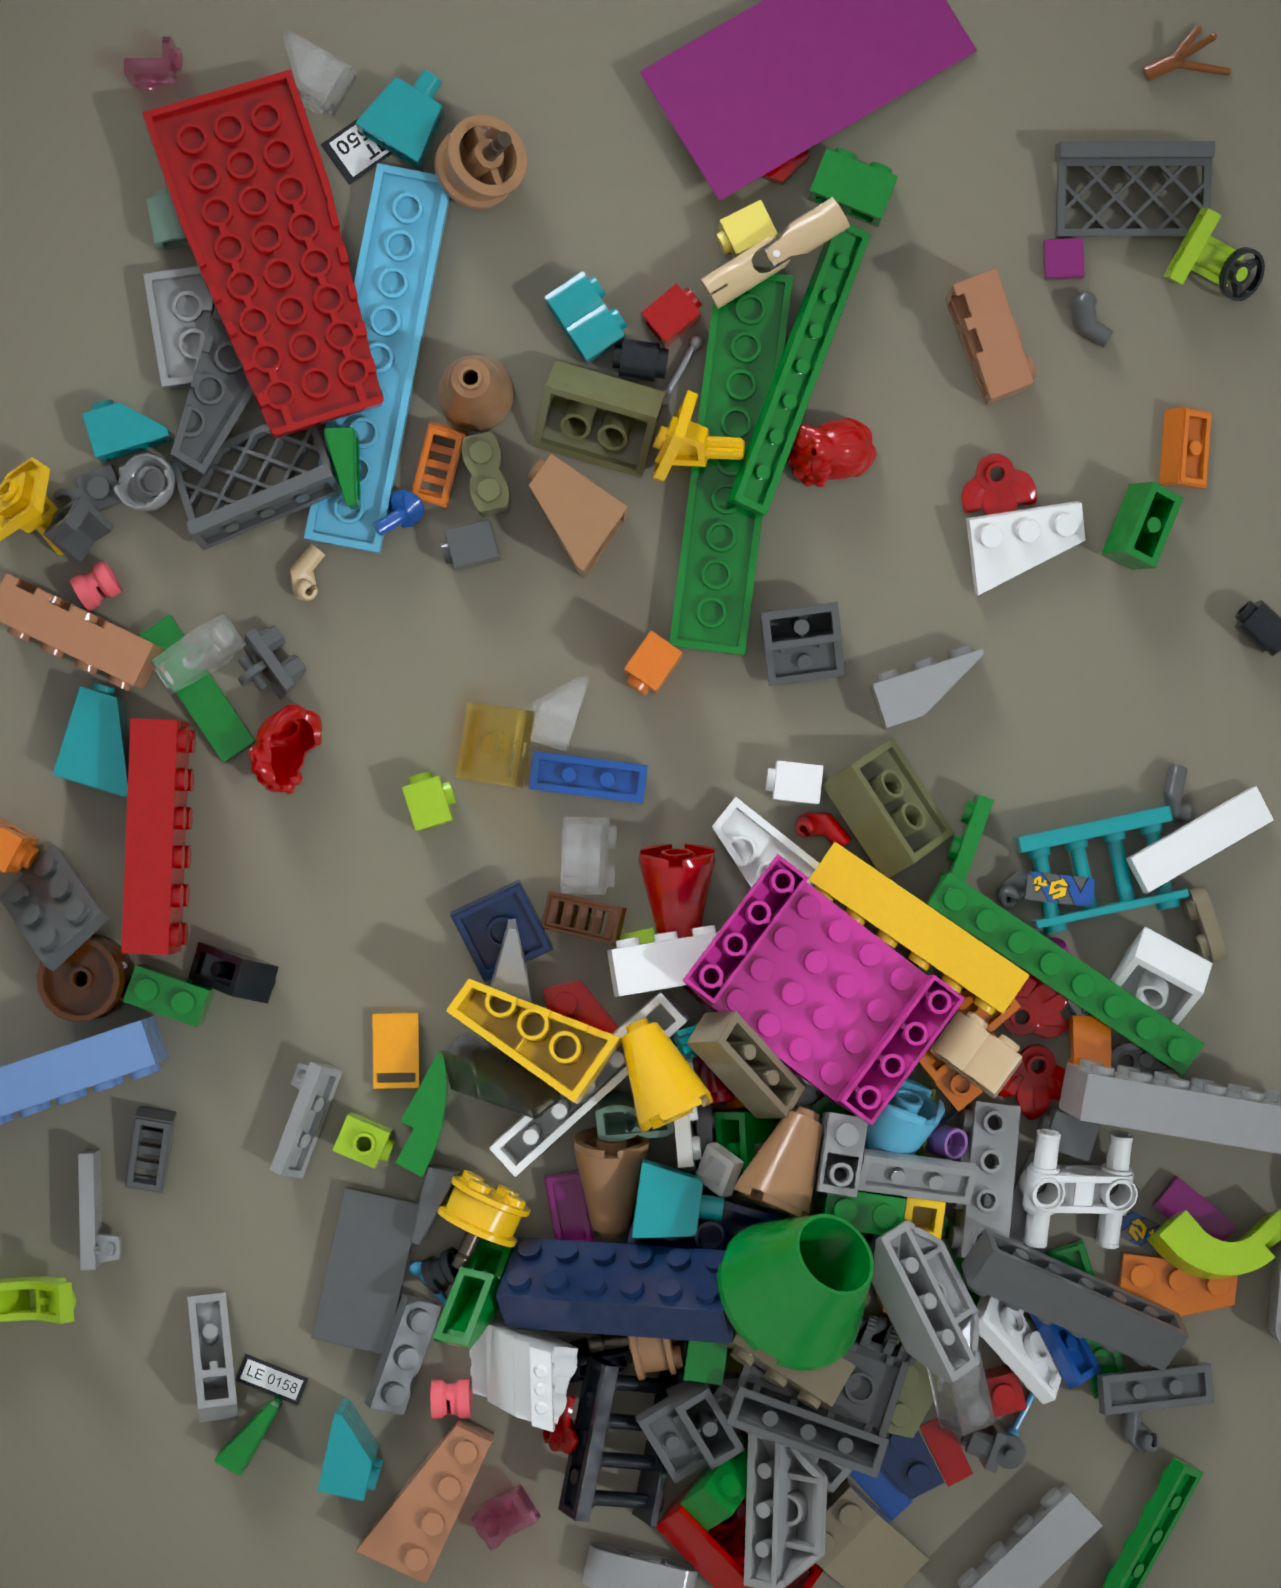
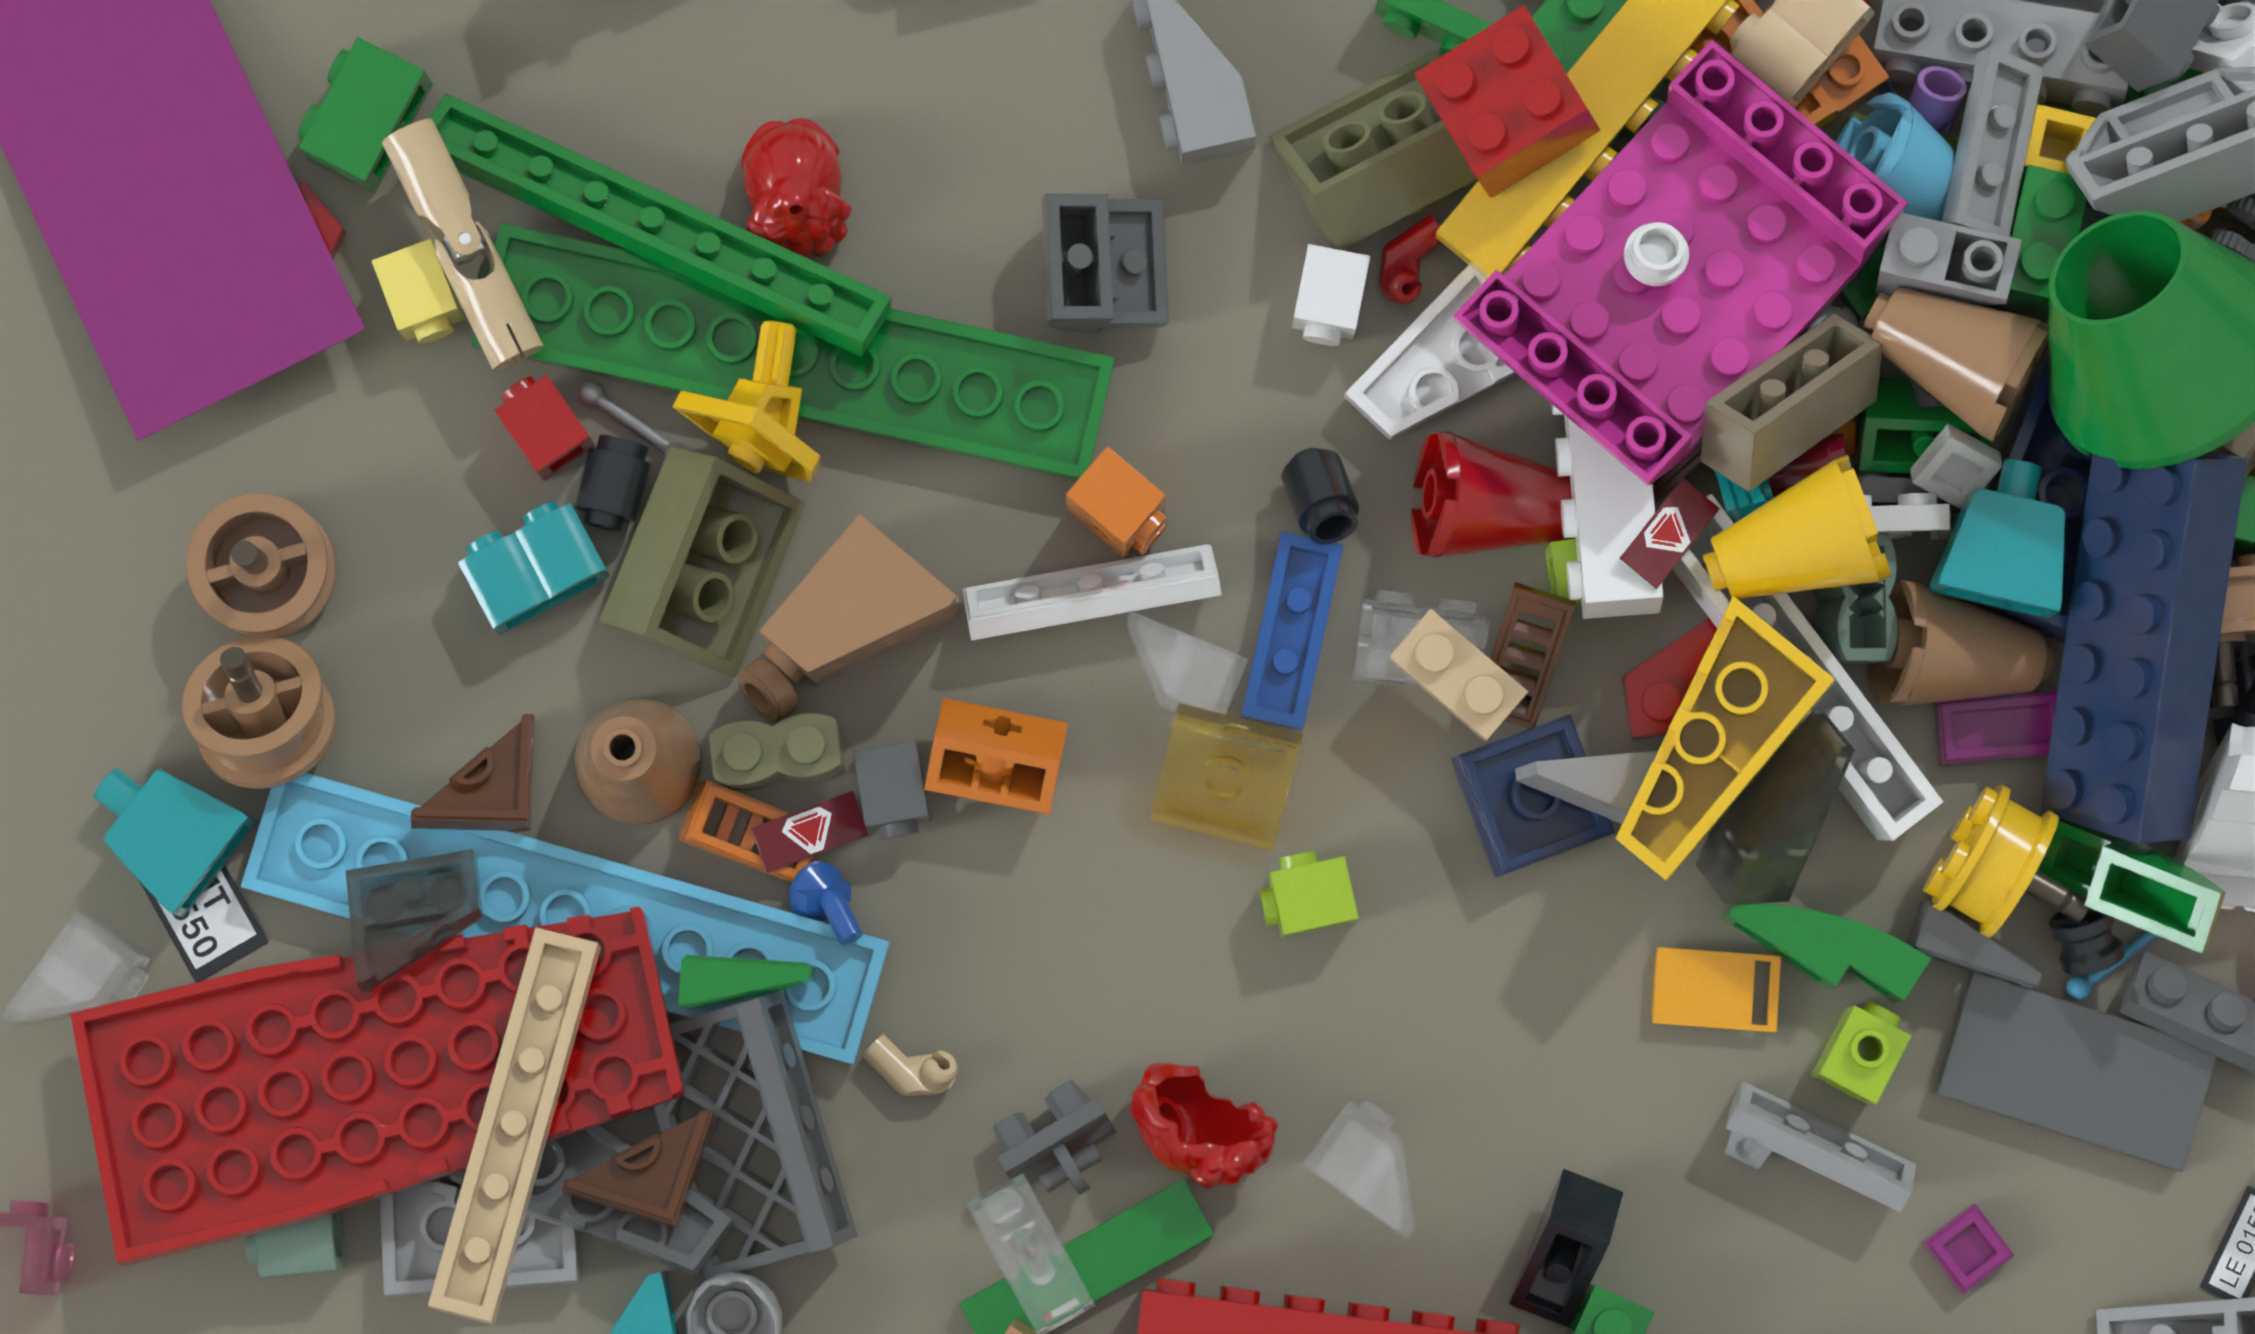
camera: 90 degrees left, 5 degrees down
(224, 424) = (651, 1175): none -> reddish brown tile
(241, 337) = (514, 1126): none -> tan plate
(255, 1213) = (1968, 1248): none -> magenta tile
(271, 848) = (1366, 1164): none -> clear slope
(368, 263) = (408, 911): none -> clear smoke wing
(441, 498) = (809, 831): none -> dark red sticker
(448, 305) = (489, 790): none -> reddish brown tile
(494, 605) = (996, 756): none -> orange brick
(522, 465) = (767, 690): none -> medium nougat tile
(566, 878) = (1457, 675): none -> tan plate
(570, 154) = (261, 565): none -> medium nougat wheel
(600, 654) = (1091, 591): none -> white tile
(658, 997) = (1669, 533): none -> dark red sticker
(671, 787) = (1321, 495): none -> black brick
(828, 975) = (1656, 254): none -> white plate
(915, 876) = (1507, 101): none -> red brick

